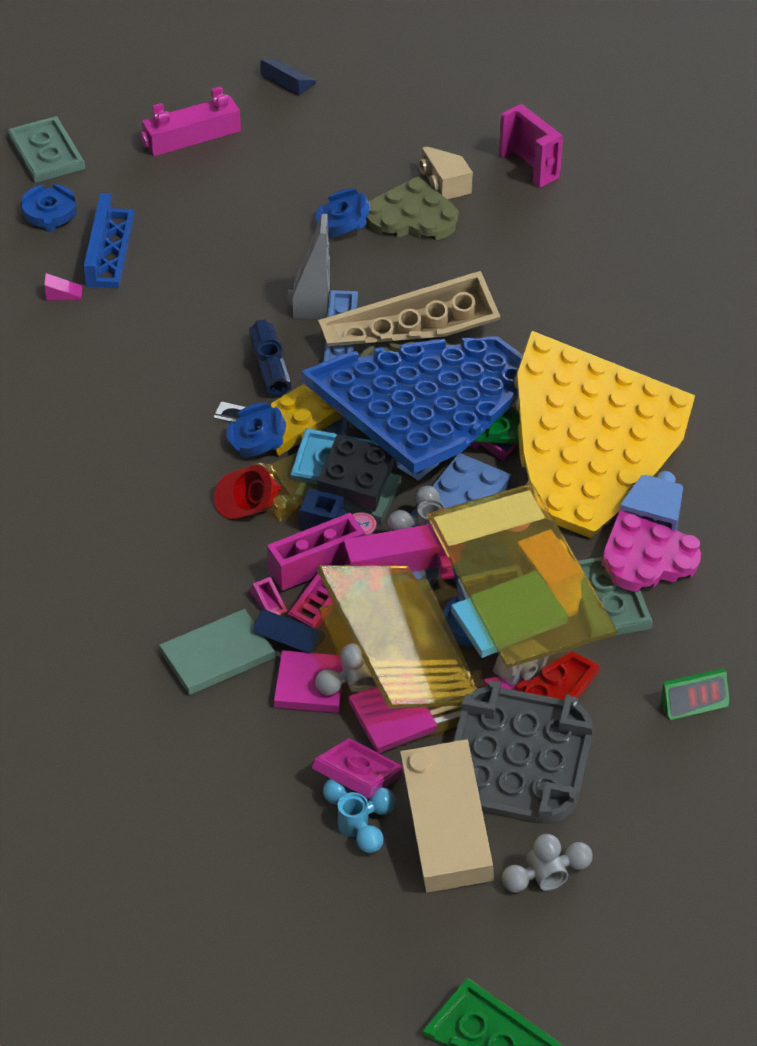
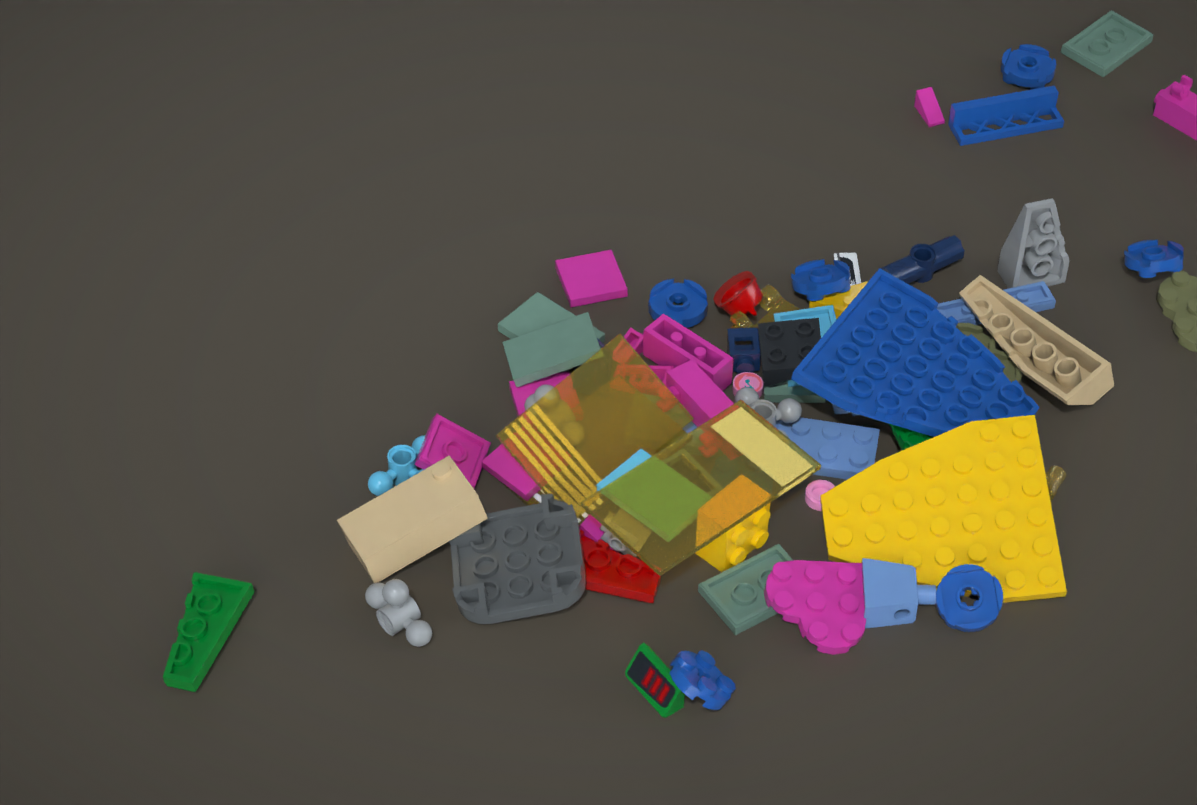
camera: 70 degrees right, 0 degrees up
(157, 600) = (591, 278): none -> dark pink tile
(231, 557) = (690, 293): none -> blue plate
(260, 648) = (551, 349): none -> sand green tile
(669, 457) = (957, 613): none -> blue plate
(718, 657) = (700, 677): none -> blue plate

